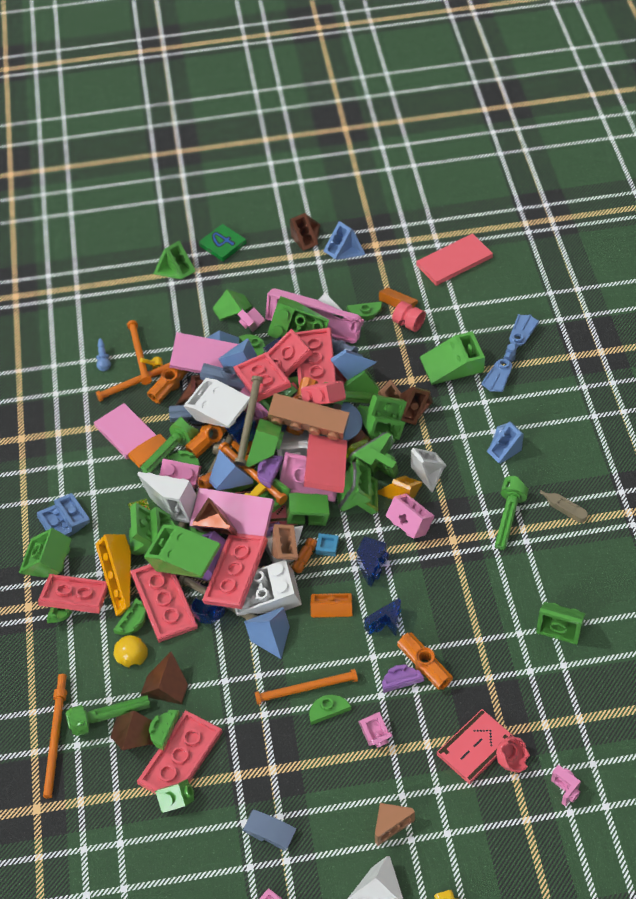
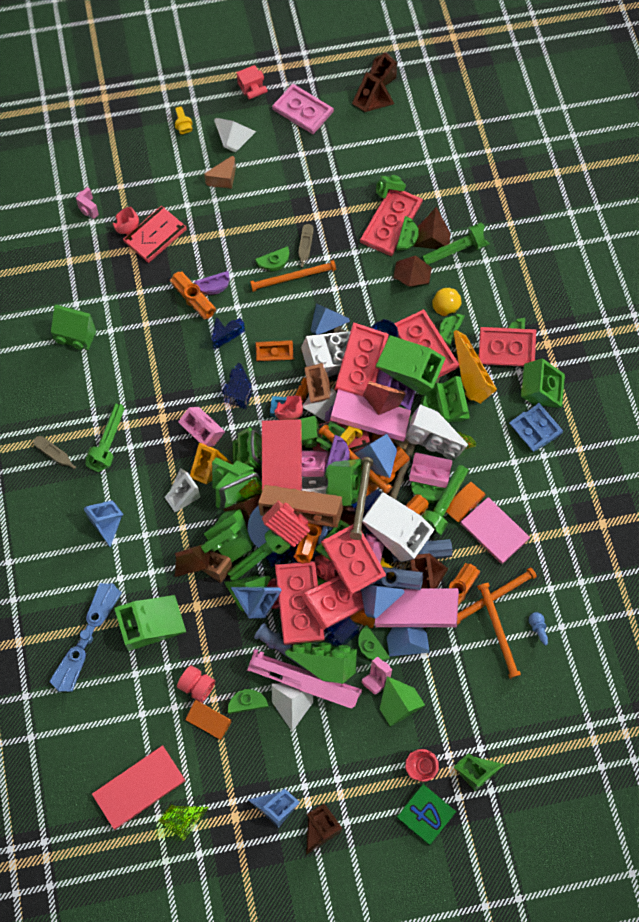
camera: 175 degrees right, 15 degrees up
(59, 696) = (499, 262): orange bar -> none
(155, 362) = (476, 617): yellow hand -> none
(221, 266) = (422, 765): none -> coral hair
(270, 829) = (318, 168): sand blue slope -> none
(288, 729) = (305, 243): none -> dark tan piece
(317, 526) = (290, 410): none -> coral hair
(375, 730) = (233, 237): bright pink bracket -> none
(416, 236) = (182, 819): none -> clear neon green slope

